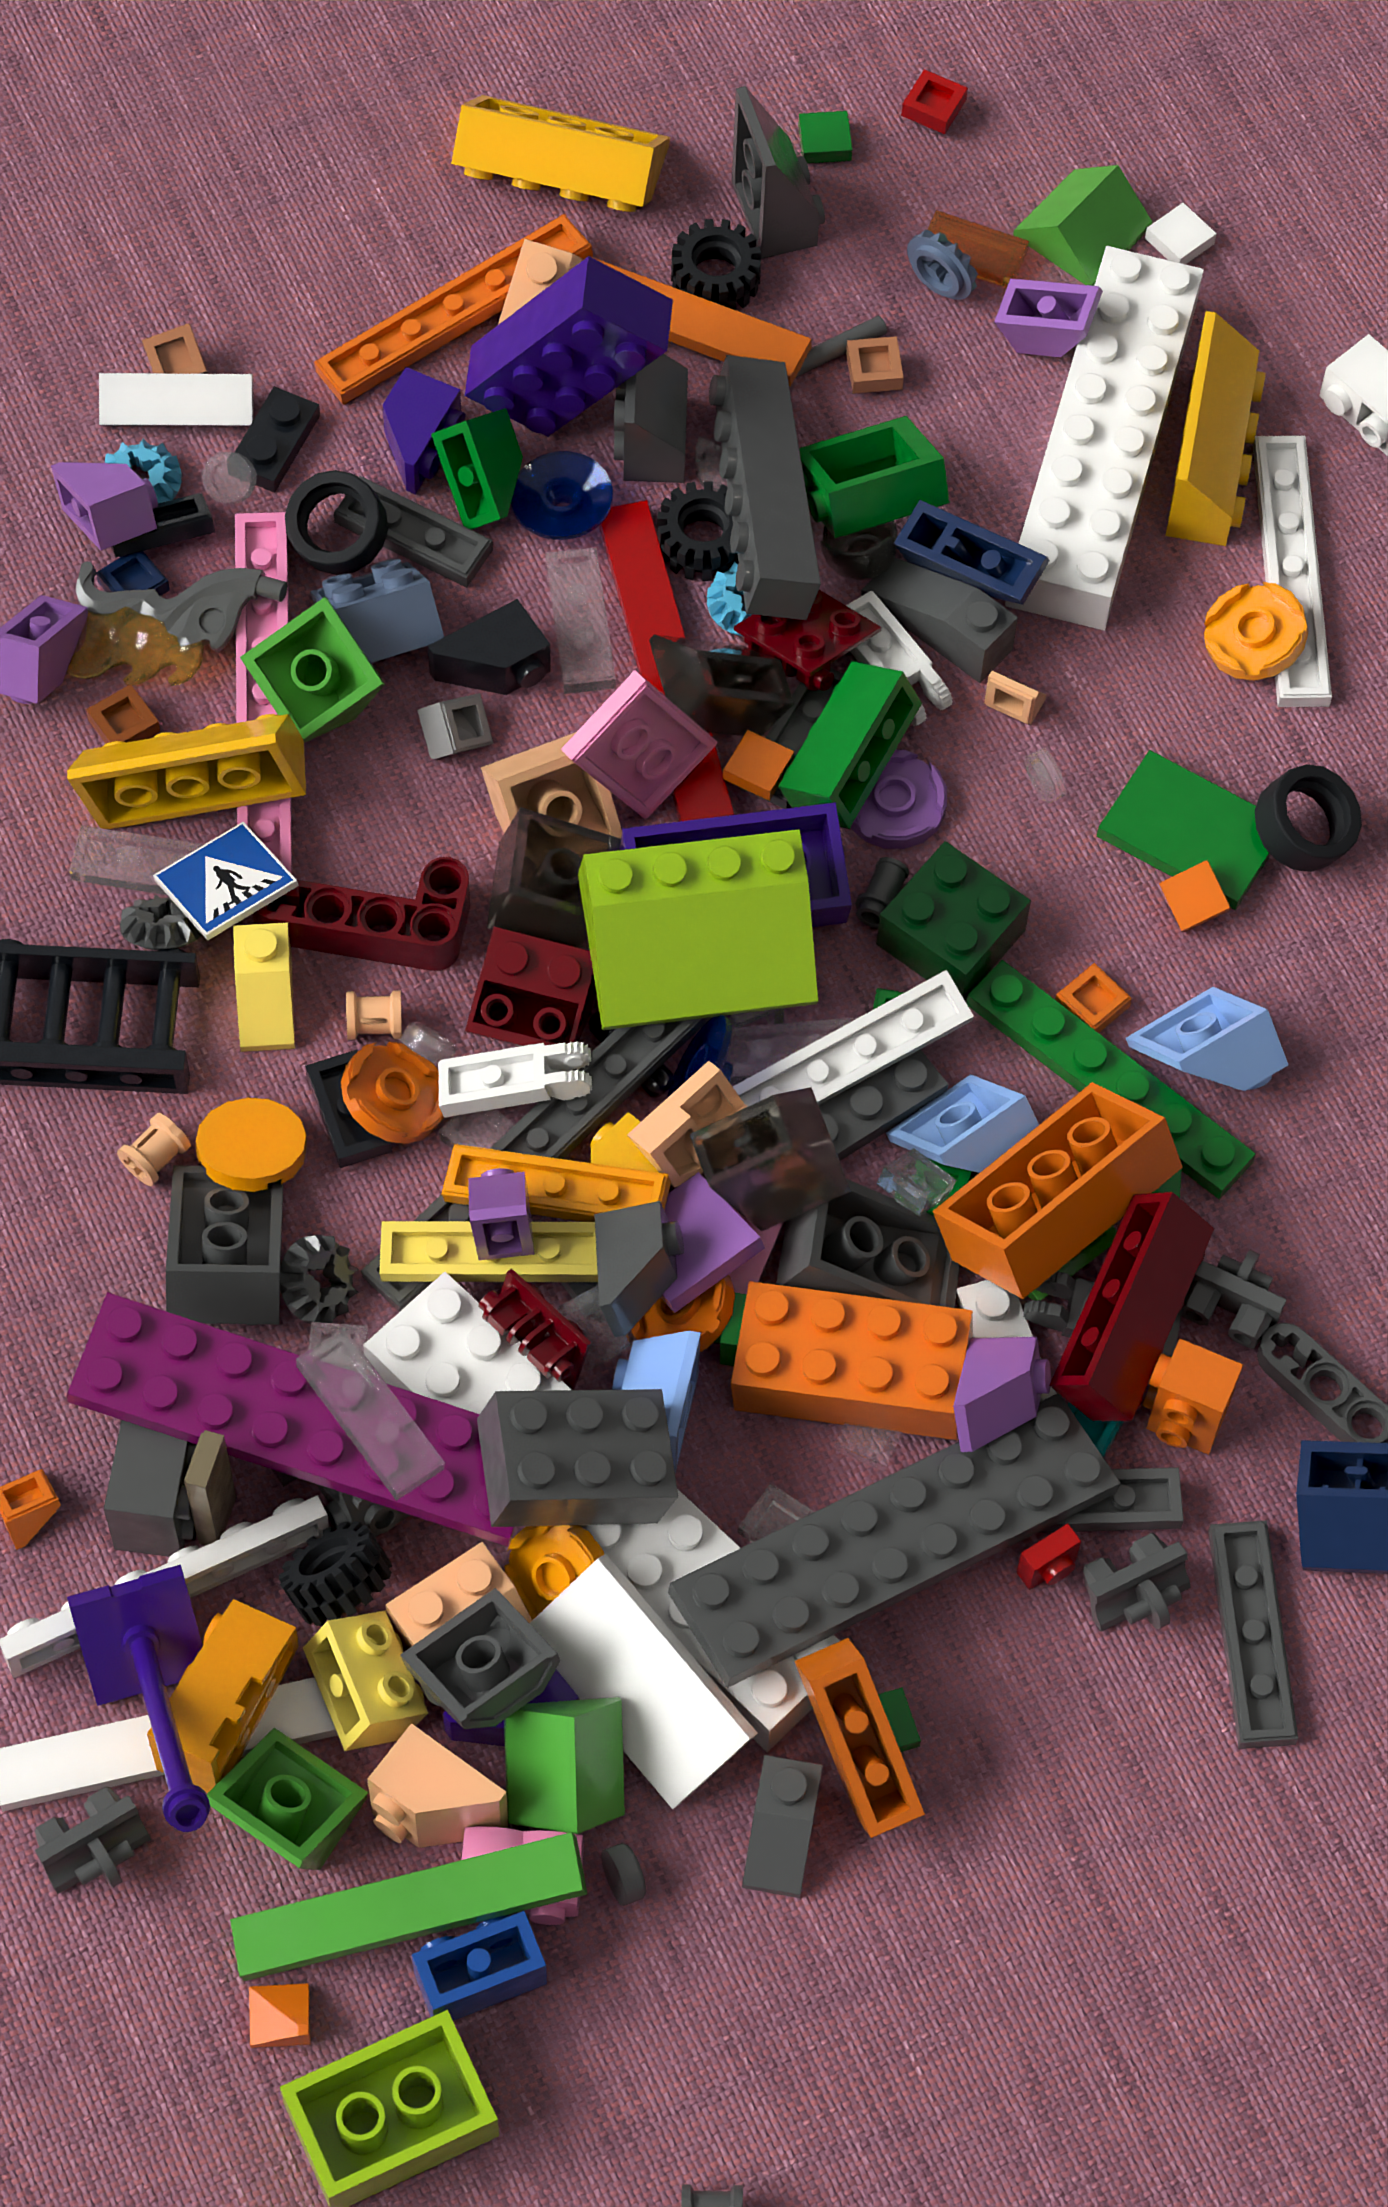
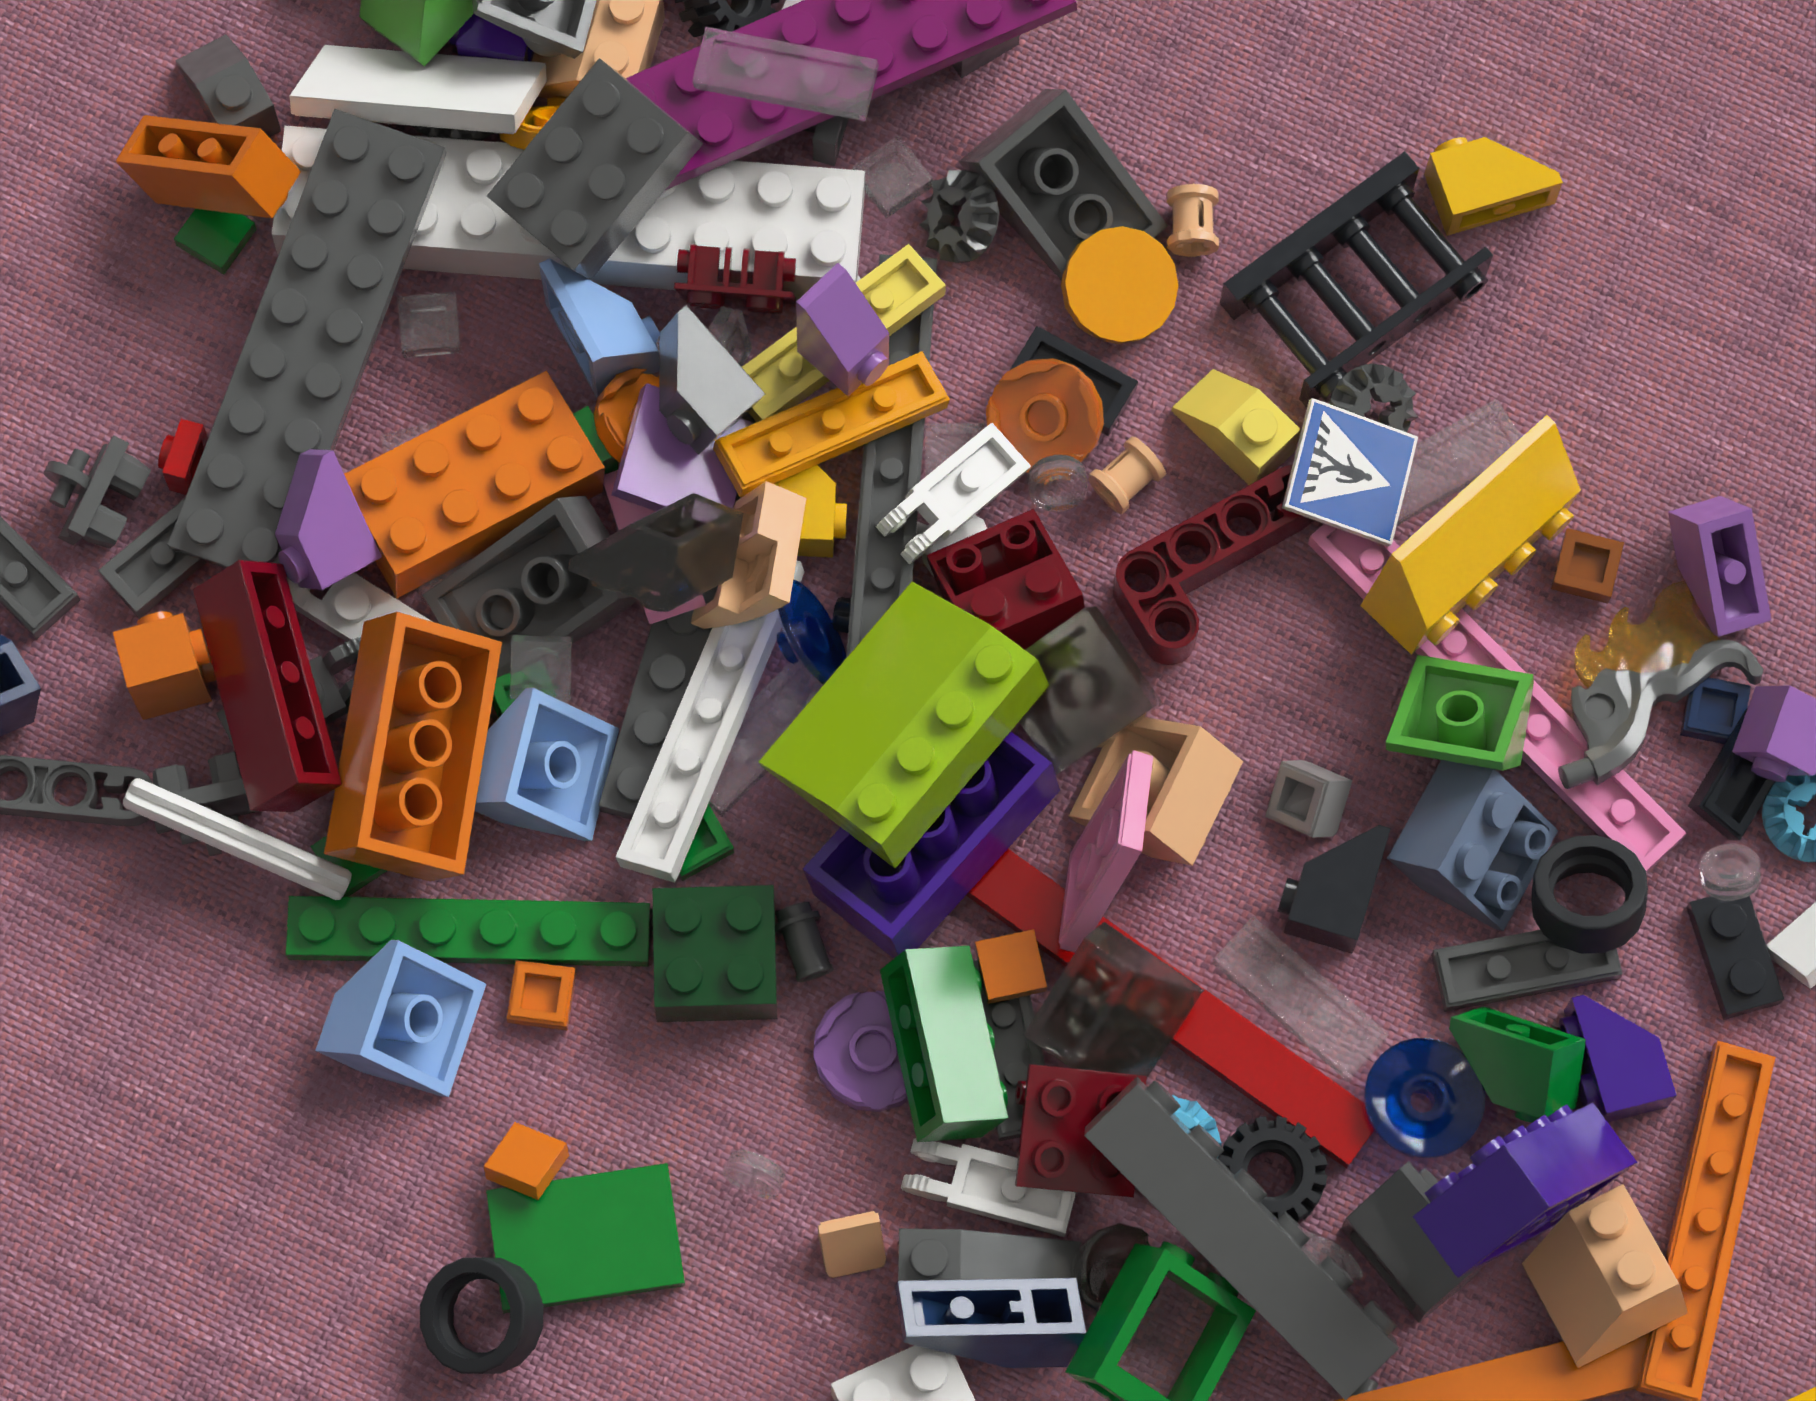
camera: 140 degrees right, 10 degrees up
(1239, 1236) = (237, 839): none -> white axle

